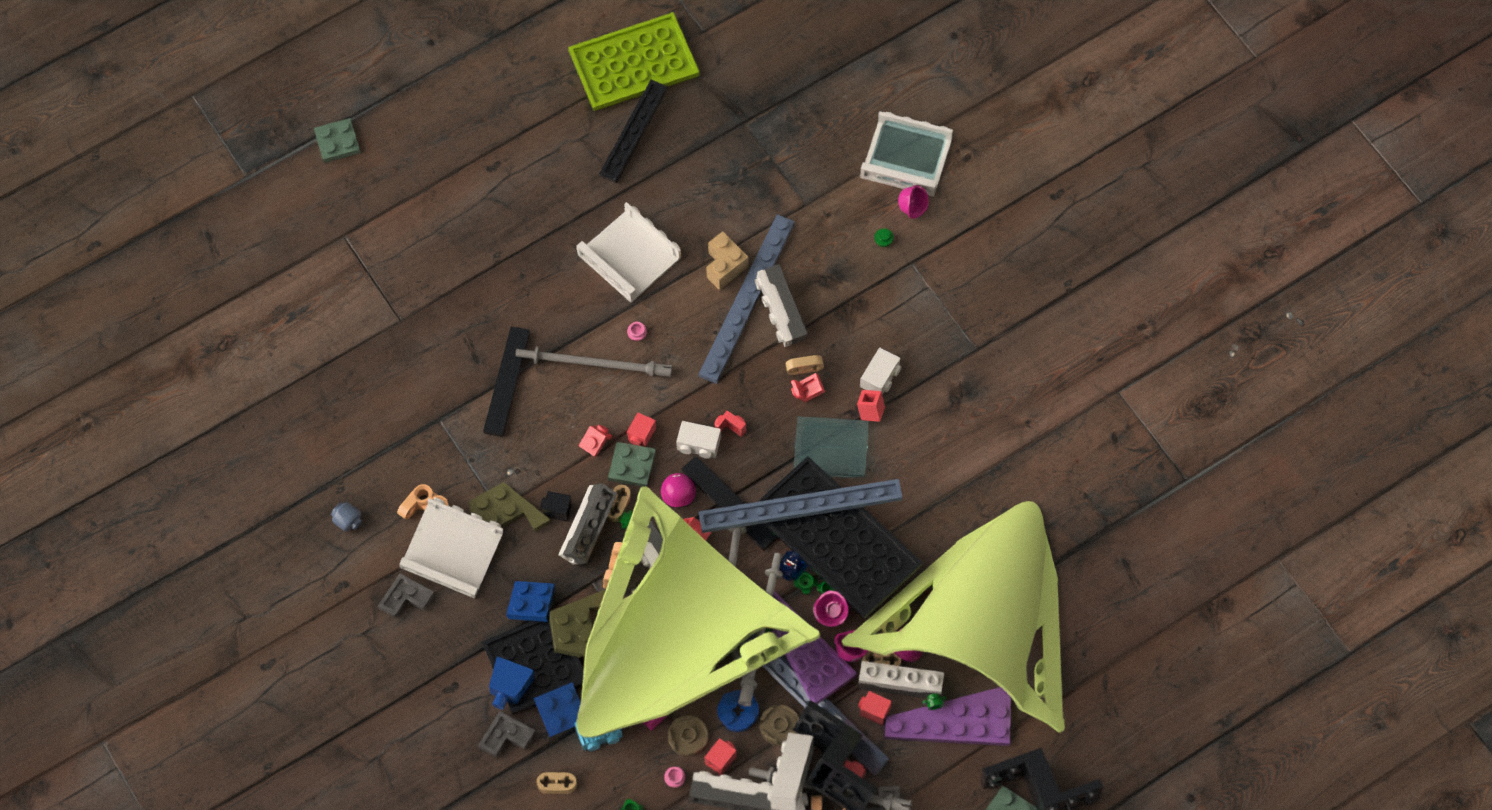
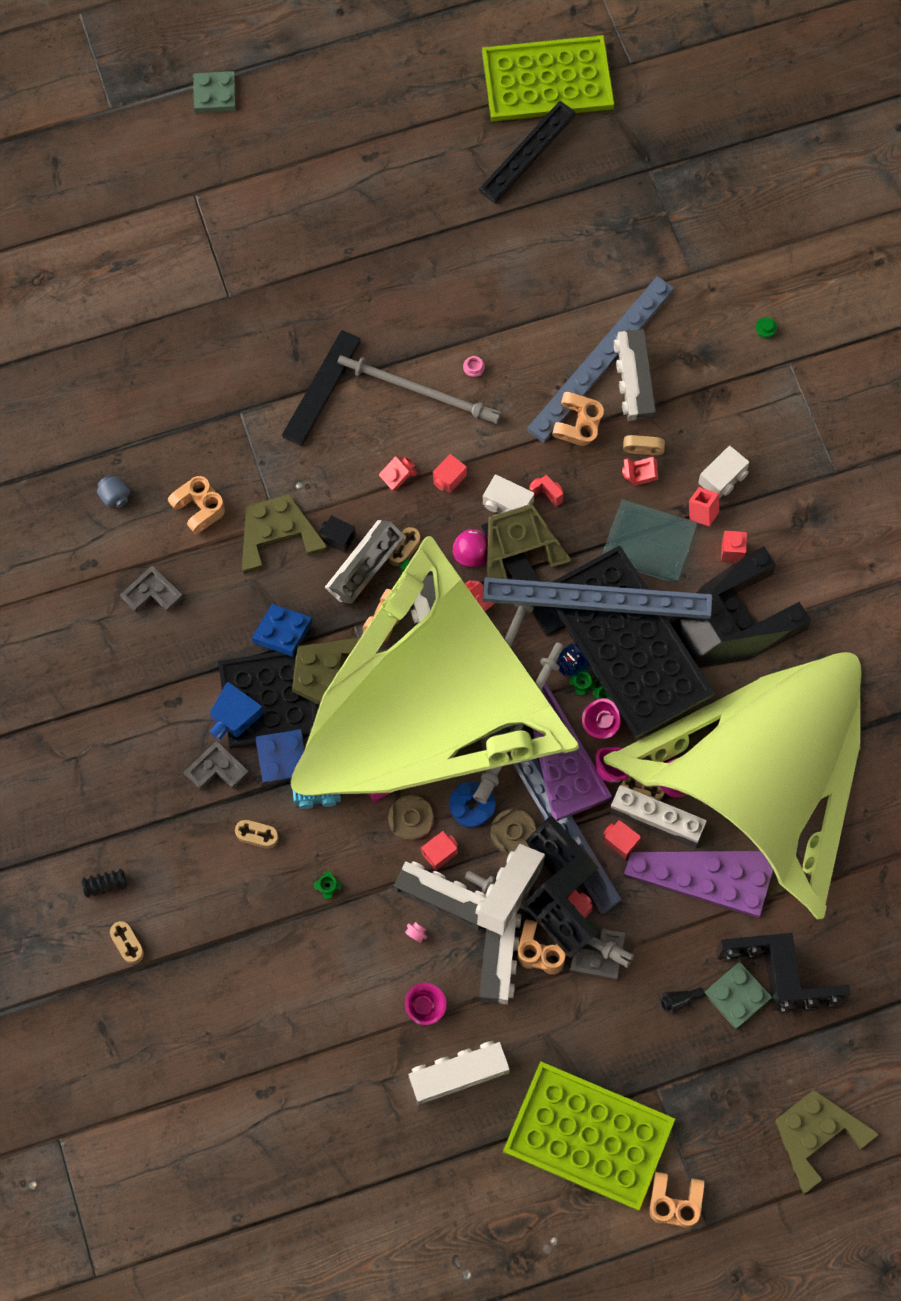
camera: 15 degrees right, 5 degrees up
(452, 547) = (214, 552): white panel -> none
(630, 253) = (489, 282): white panel -> none
(631, 464) = (430, 508): sand green plate -> none
(674, 777) = (384, 860): bright pink plate -> none
(716, 466) = (516, 533): none -> olive wing
(728, 263) = (592, 313): tan brick -> none
(740, 342) = (579, 404): none -> light nougat piece
(905, 434) = (733, 546): none -> coral brick
(907, 153) = (815, 243): panel -> none
(913, 201) = (809, 295): dark pink helmet -> none
(921, 506) = (731, 630): none -> black wedge
(934, 701) = (688, 849): green plate -> none

